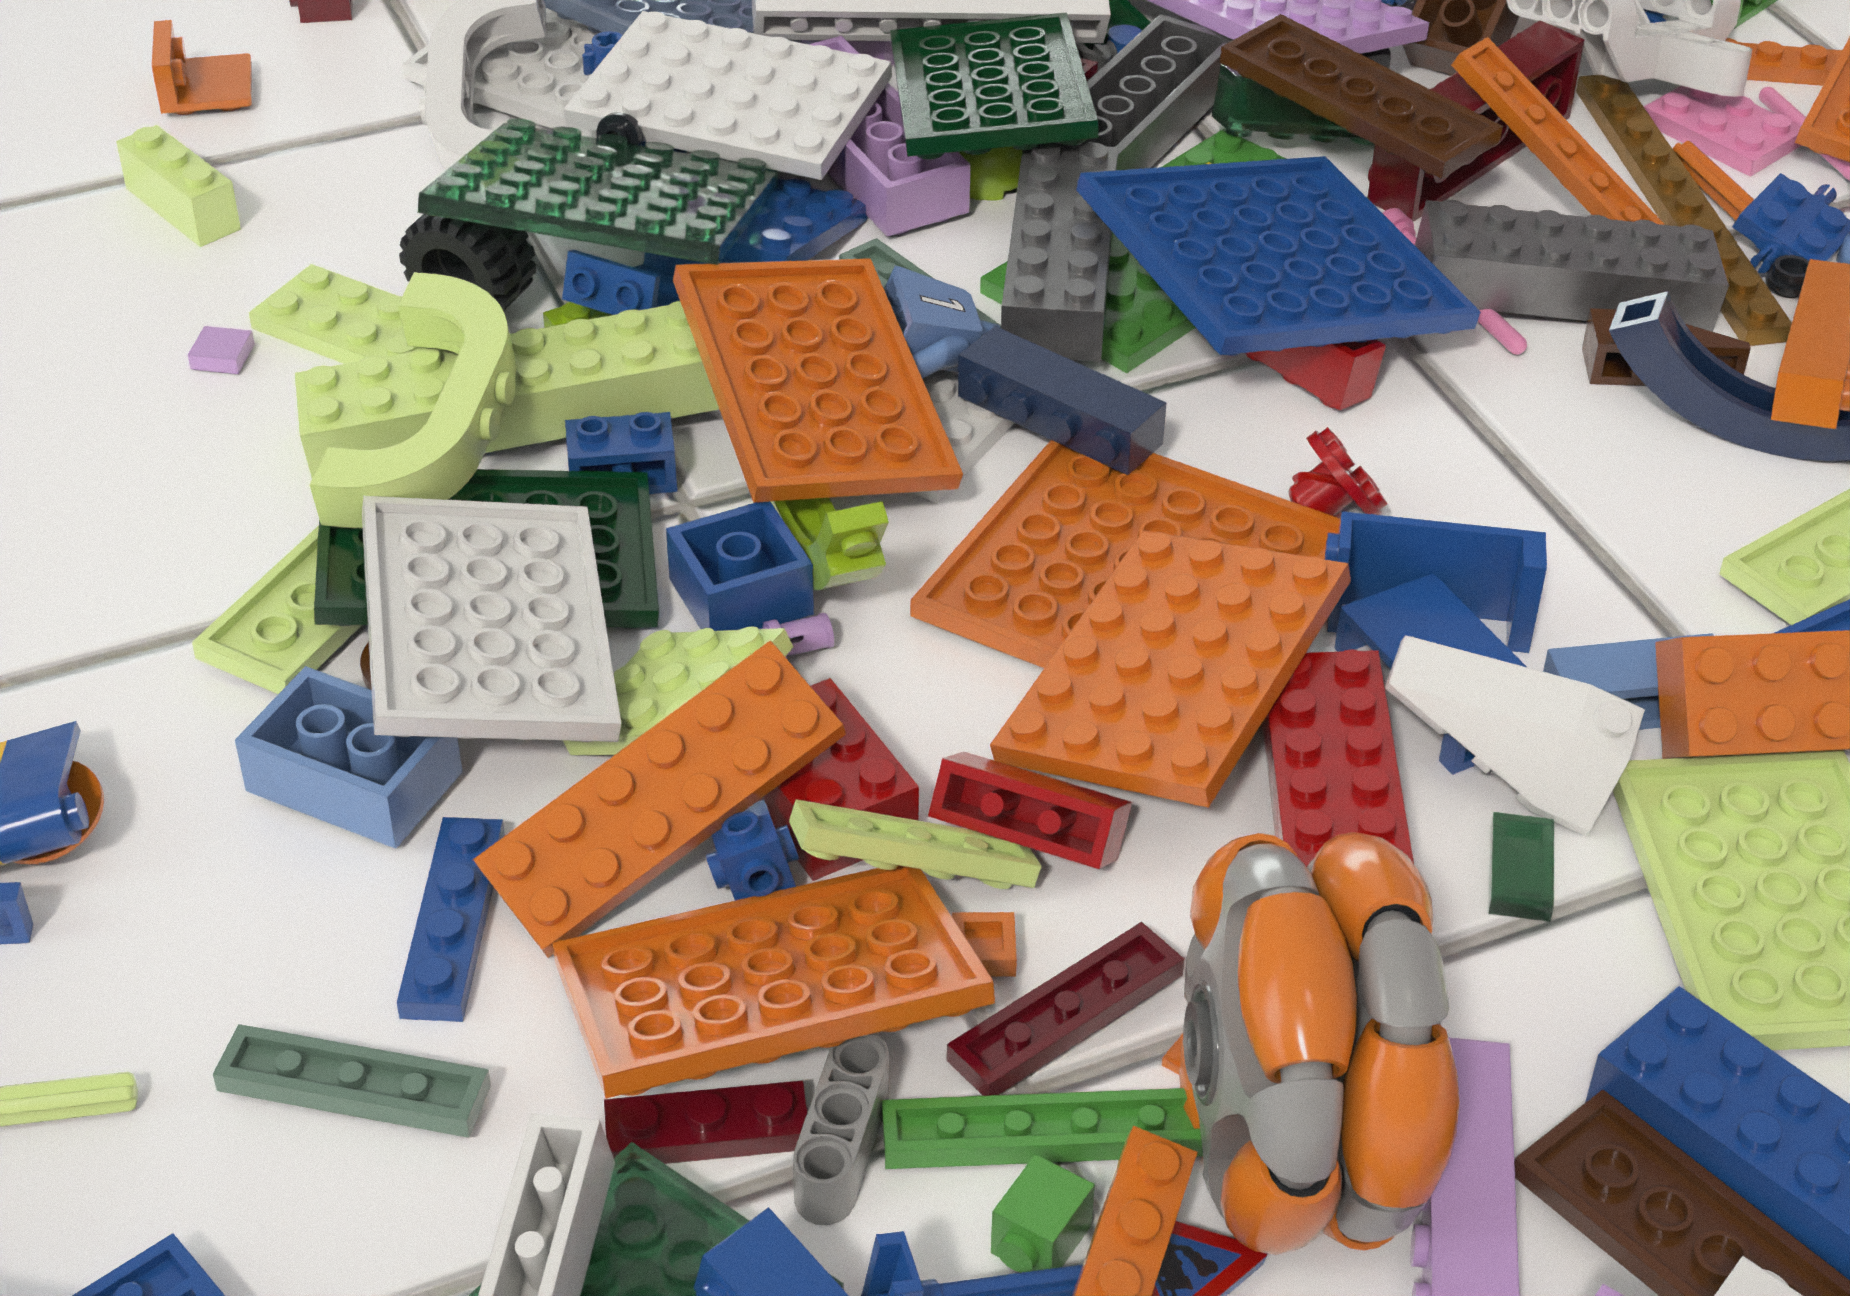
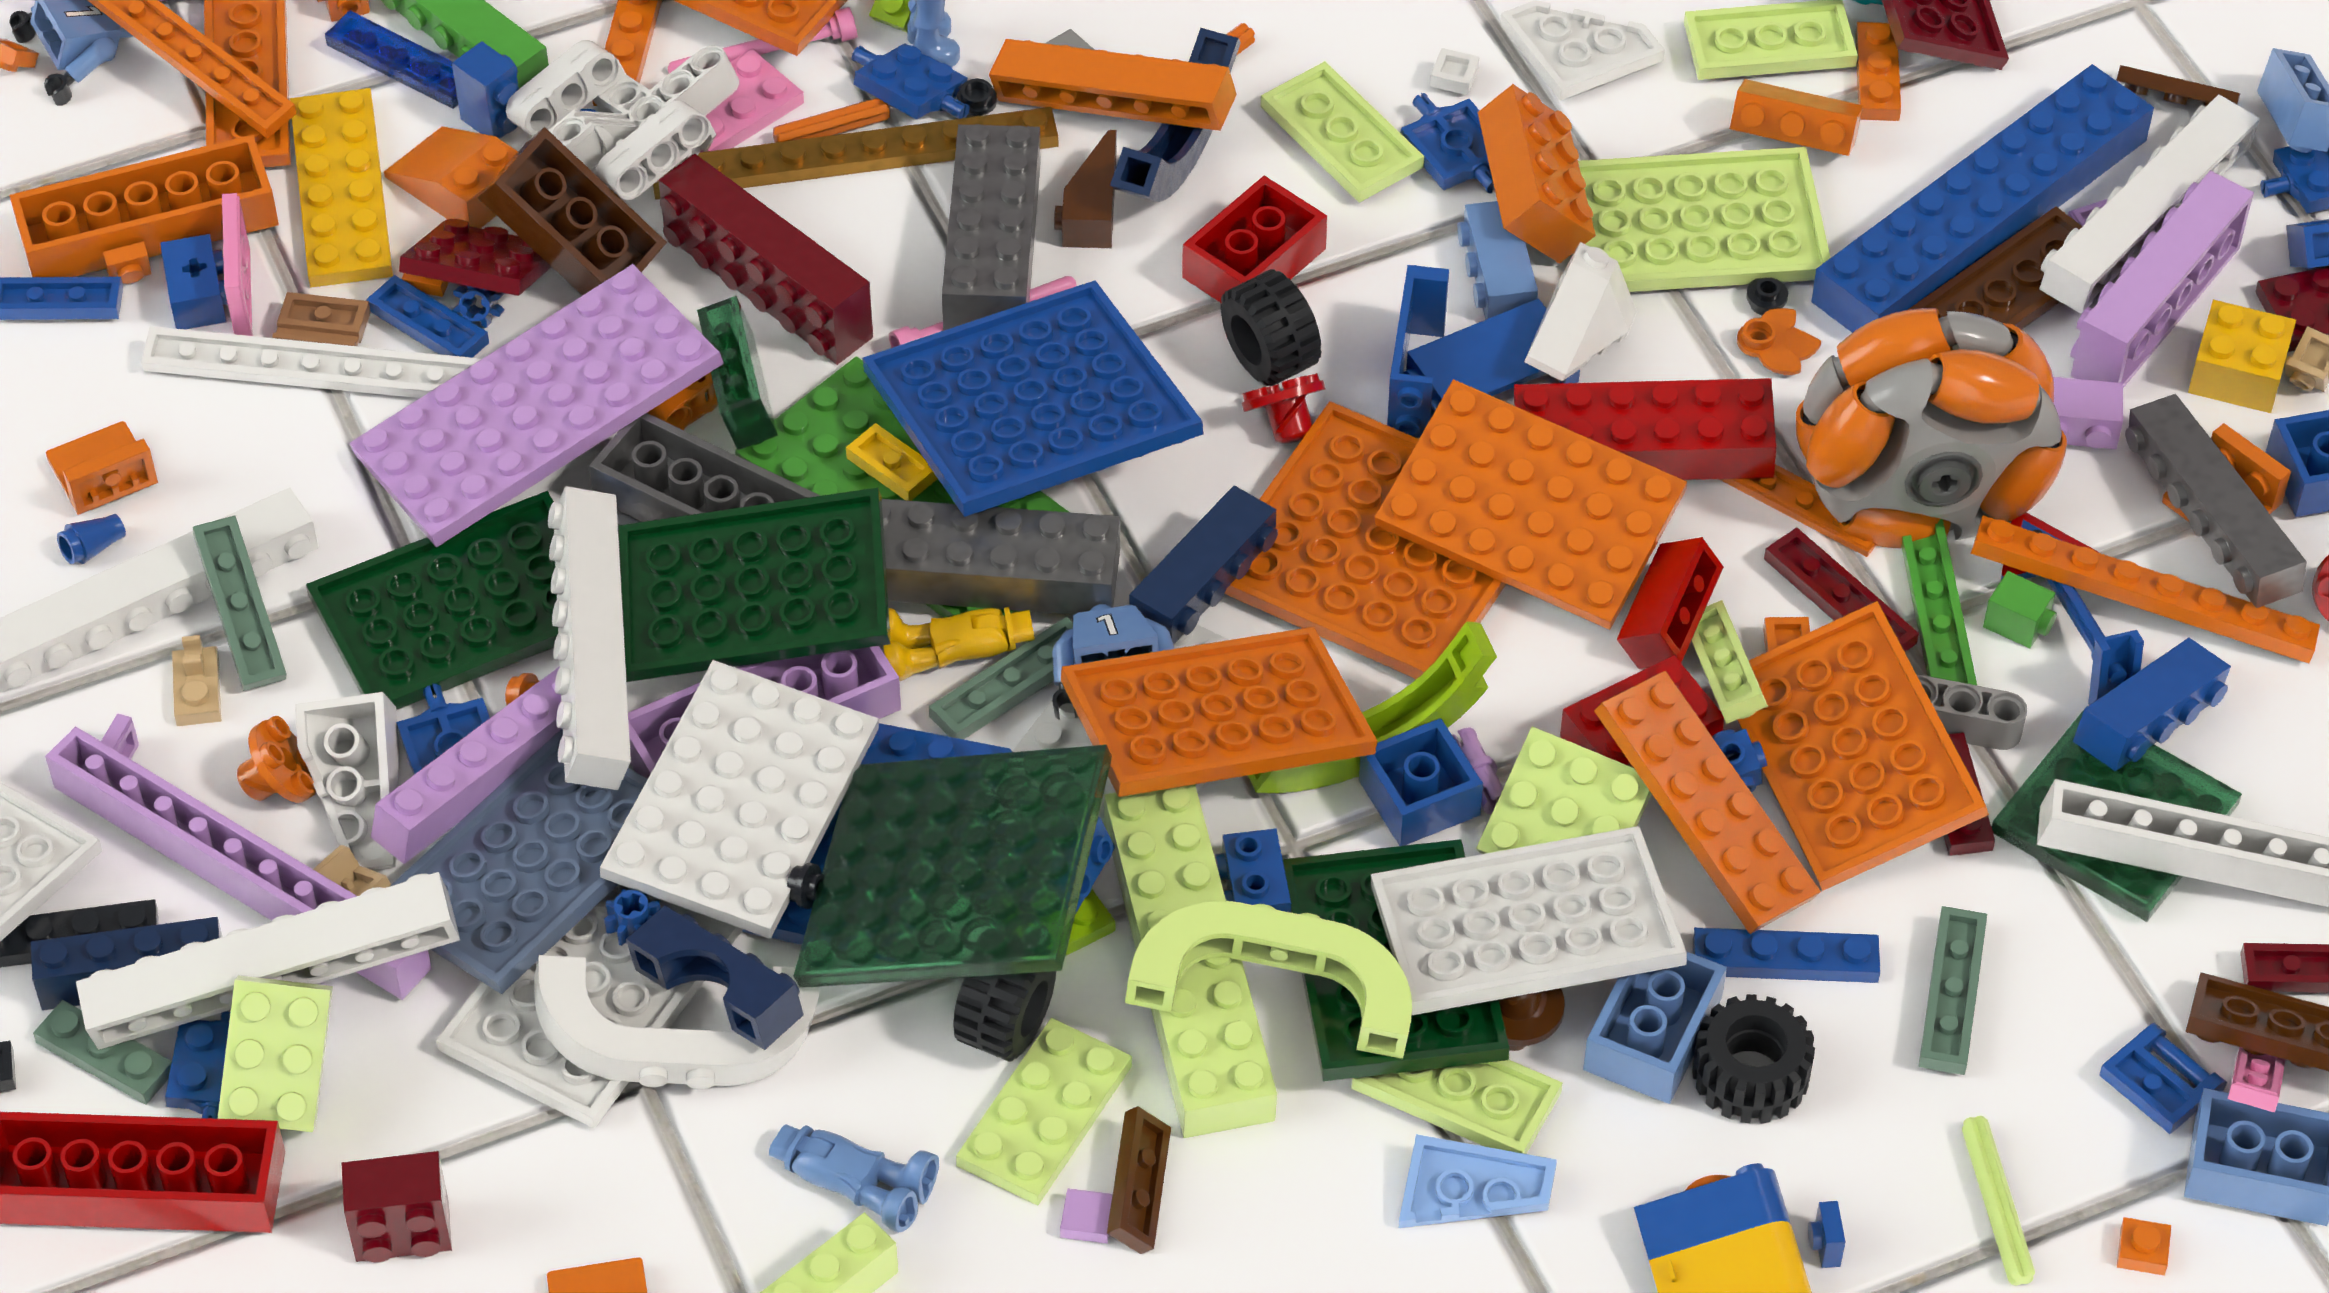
camera: 90 degrees left, 10 degrees up
(172, 608) = (1472, 1182): none -> light blue wing
(237, 370) = (1139, 1180): none -> reddish brown plate
(271, 849) = (1761, 1029): none -> black tyre
(301, 211) = (855, 1171): none -> medium blue piece
(481, 100) = (679, 951): none -> dark blue arch
(964, 248) = (954, 639): none -> yellow piece
(1361, 95) = (815, 310): reddish brown plate -> none
(1440, 450) = (1270, 327): none -> black tyre
(1521, 866) = (1673, 351): clear green tile -> none
(1549, 134) = (852, 198): orange plate -> none
(1562, 978) = (1777, 341): none -> orange plate
(1593, 460) = (1252, 235): none -> red brick
(1650, 971) = (1766, 294): none -> black plate

